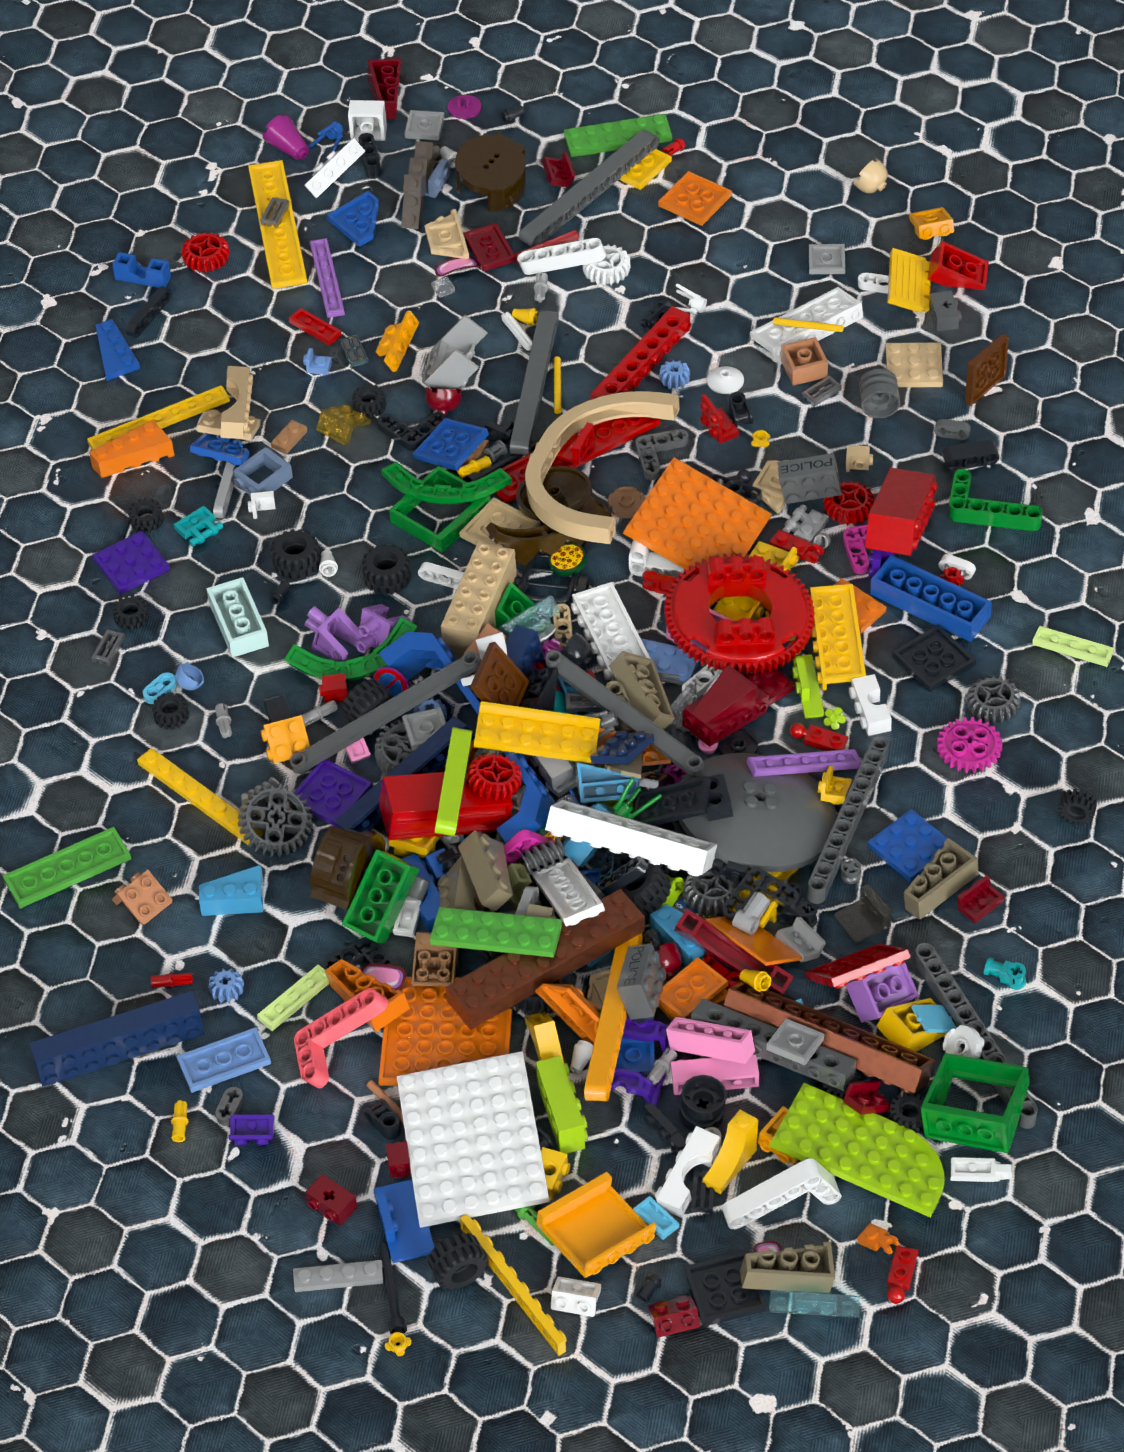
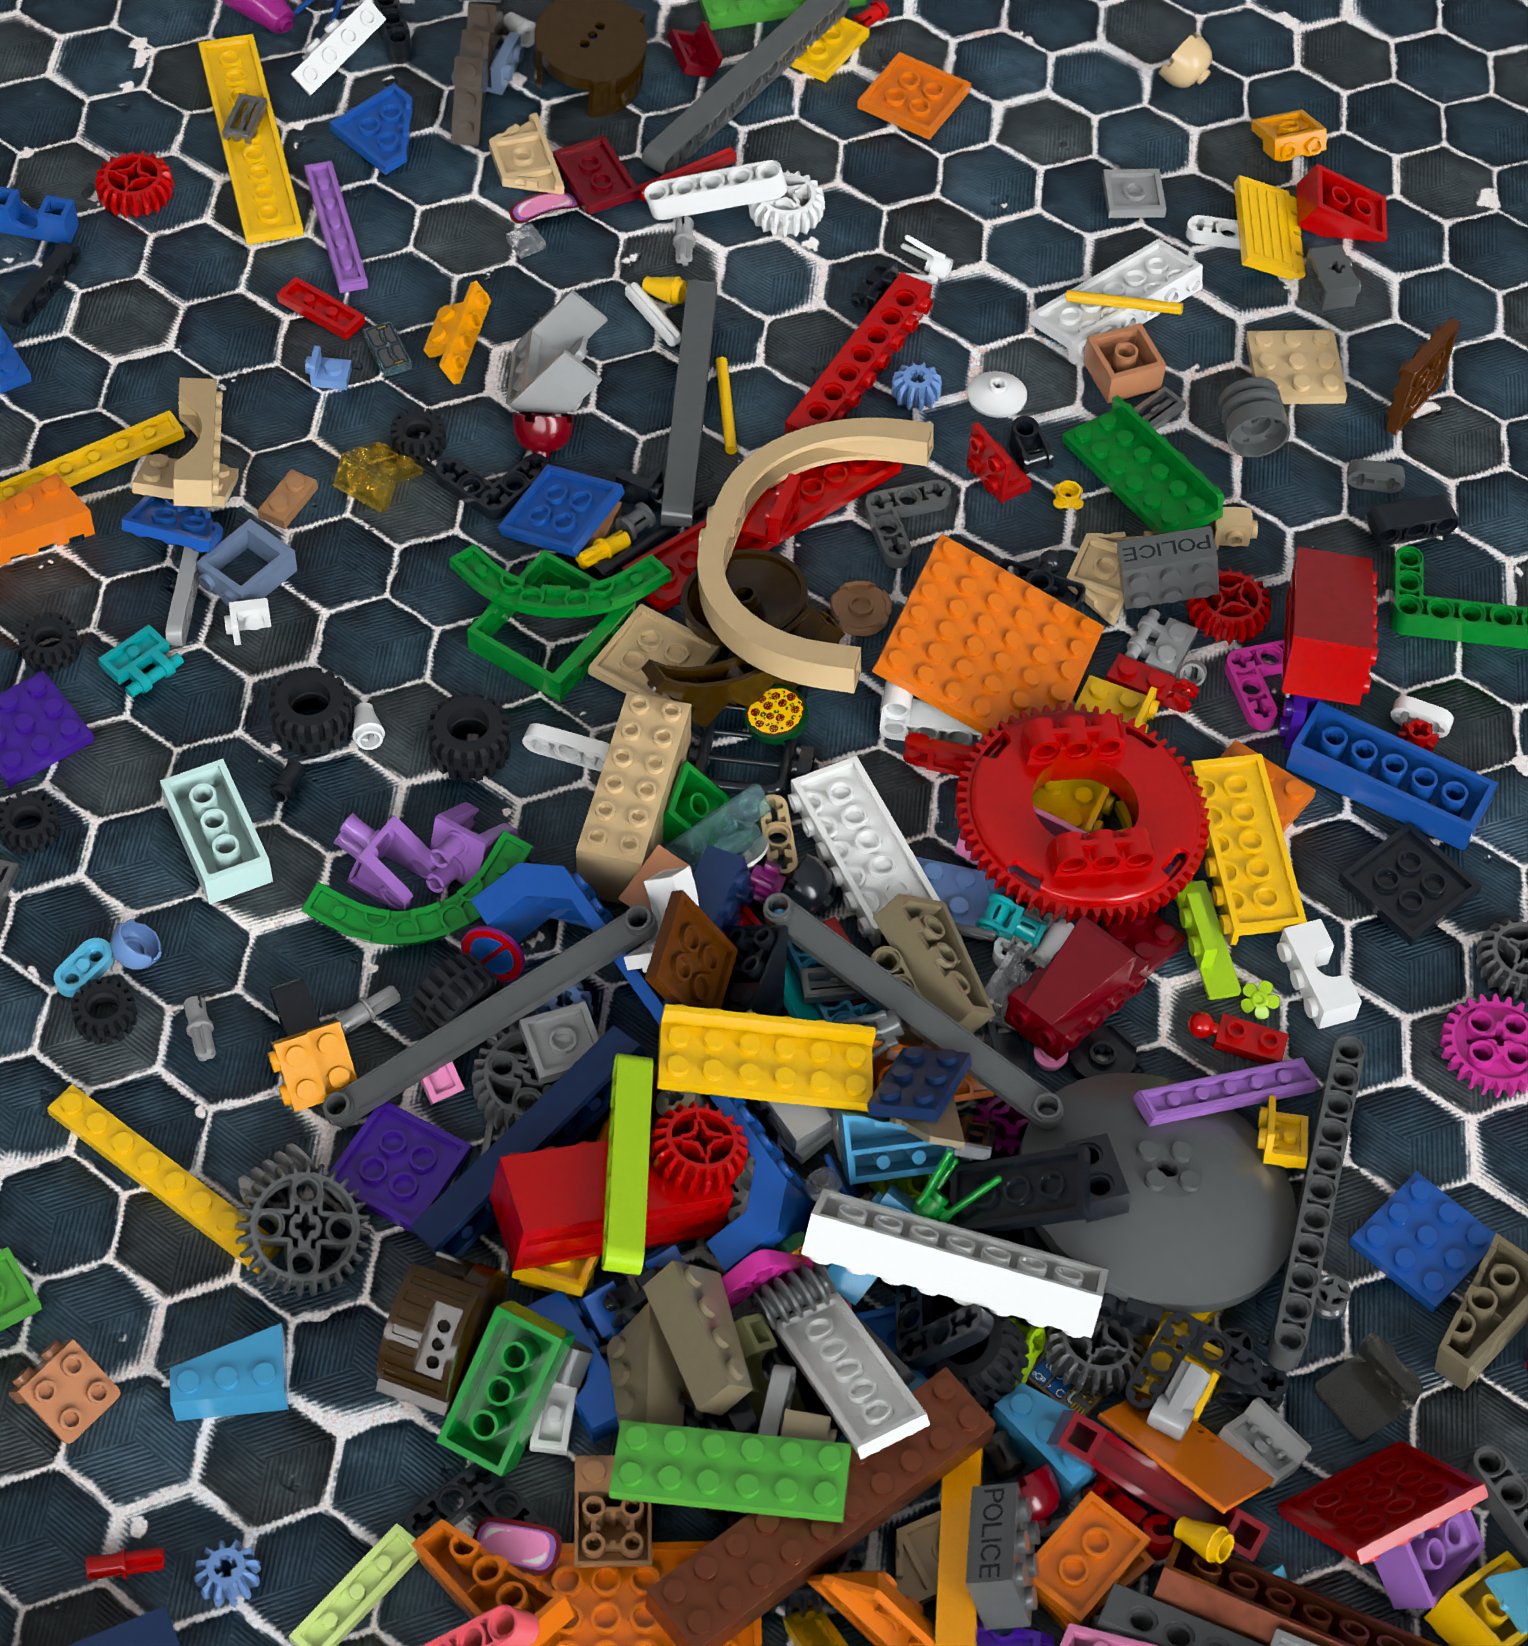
camera: 10 degrees left, 5 degrees up
(333, 688) = (392, 962): red brick -> none
(691, 672) = (1011, 921): none -> teal connector
(807, 423) = (1145, 470): none -> green bracket

